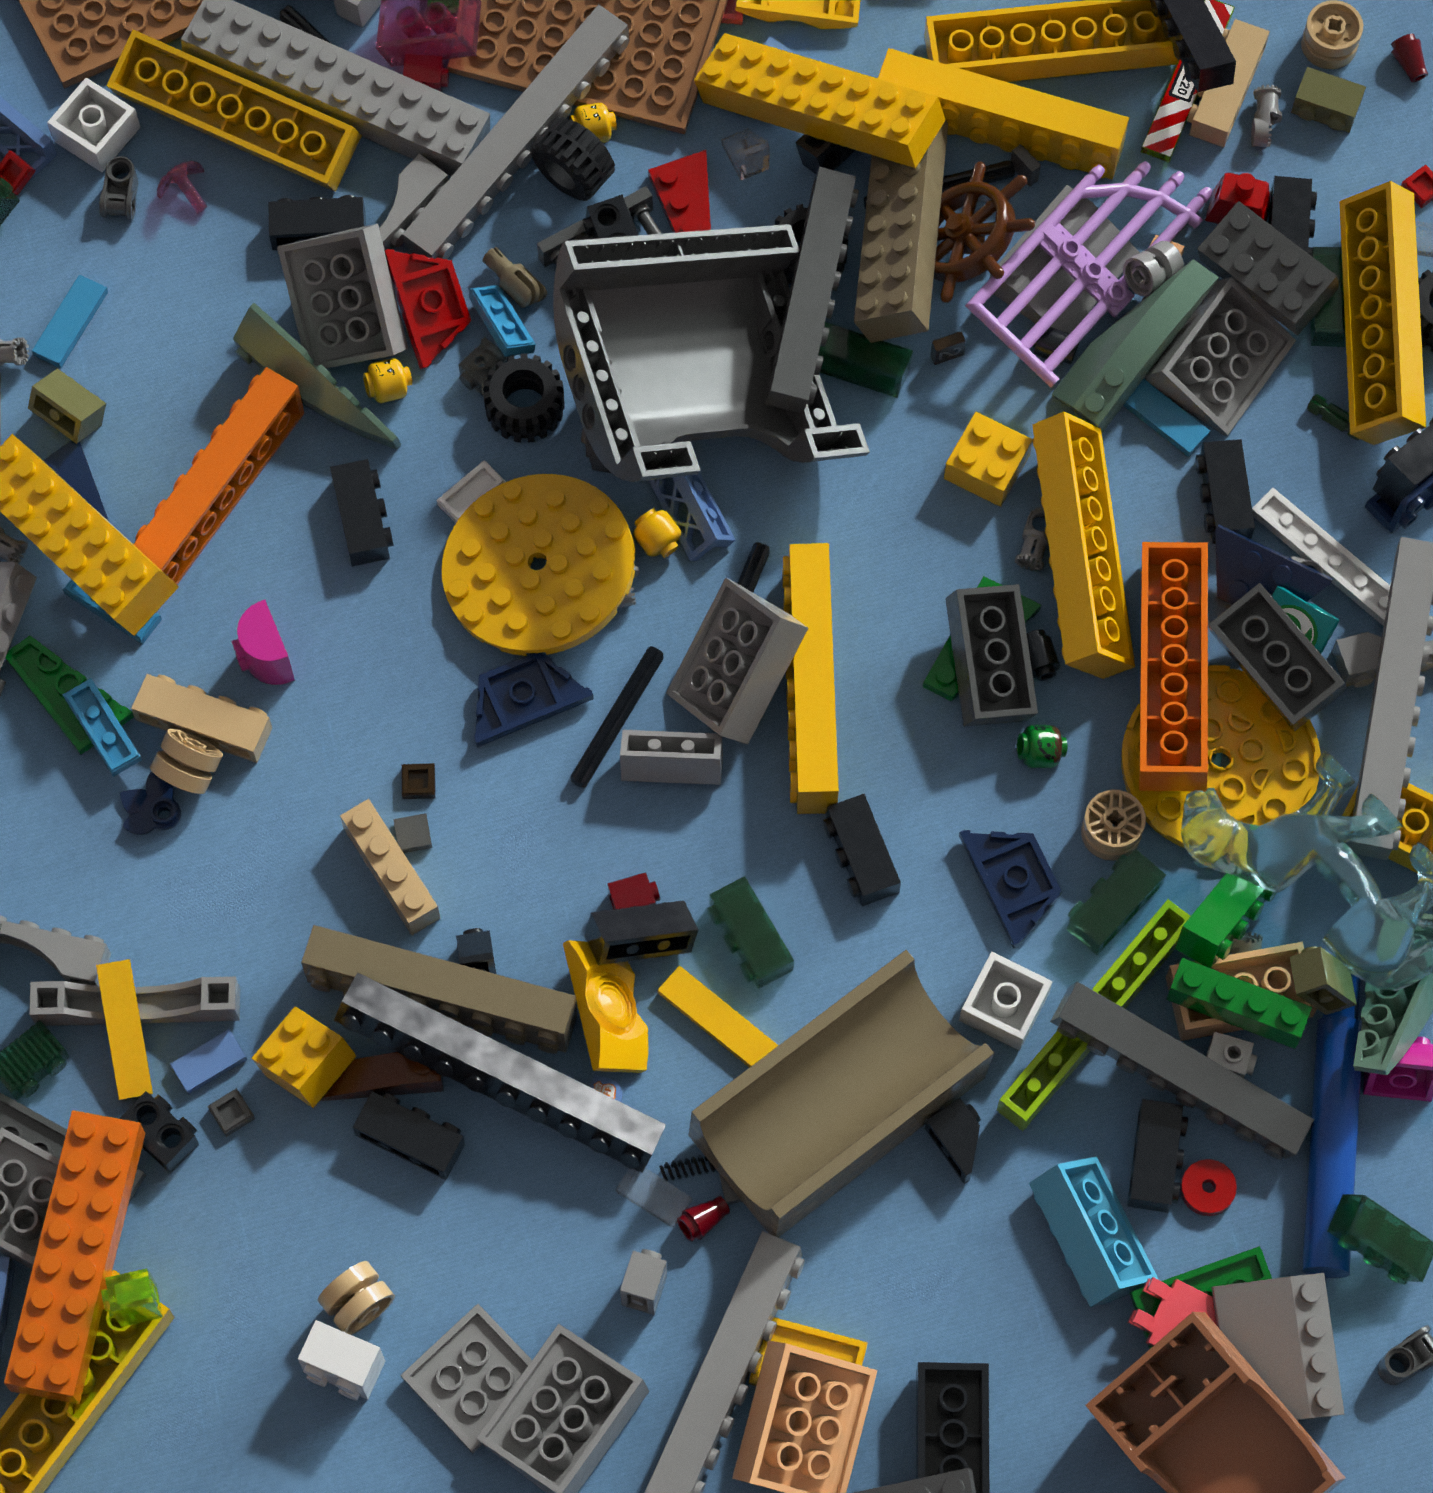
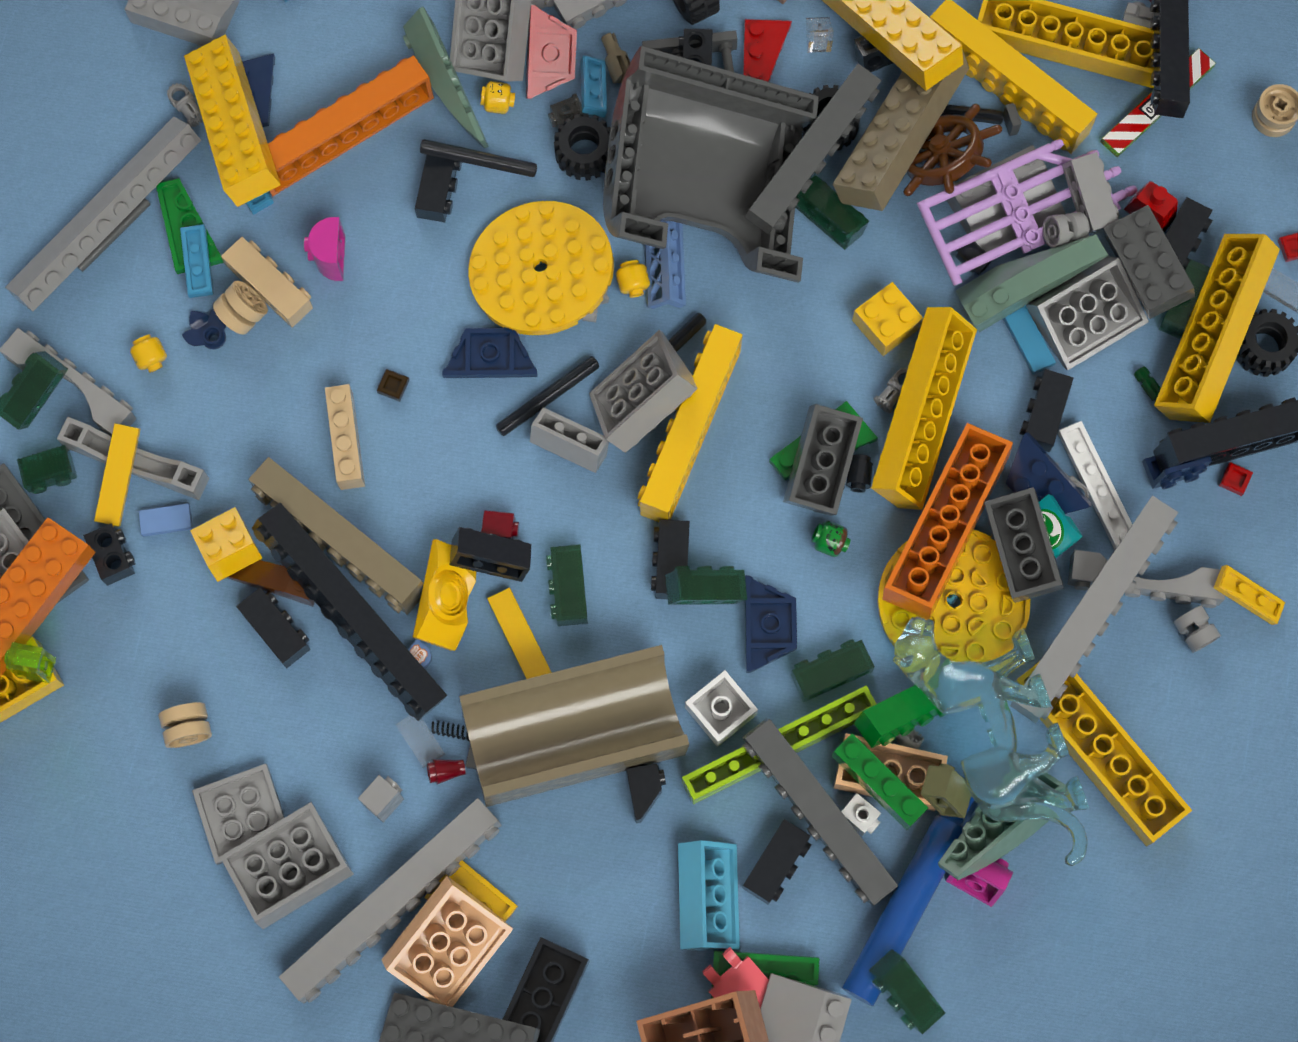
camera: 25 degrees right, 5 degrees up
(66, 405) = (274, 29): olive brick -> none
(91, 865) = (148, 353): none -> yellow head
(231, 1112) = (165, 561): dark grey tile -> none
(341, 1361) = (155, 763): white brick -> none
(399, 462) = (478, 158): none -> black axle
(413, 833) = (372, 420): dark grey tile -> none
(468, 490) = (519, 195): white tile -> none
(476, 950) = (374, 521): black slope -> none
(921, 862) = (705, 586): none -> clear green brick
(948, 348) = (896, 228): dark brown tile -> none
(1108, 809) = (850, 603): tan wheel -> none
(1162, 211) = (1091, 191): none -> light grey brick
(1208, 1172) = (816, 900): red piece -> none
(1220, 106) = (1170, 132): tan brick -> none
(1266, 114) = (1203, 150): light grey connector -> none
(1328, 100) = (1252, 157): olive brick -> none

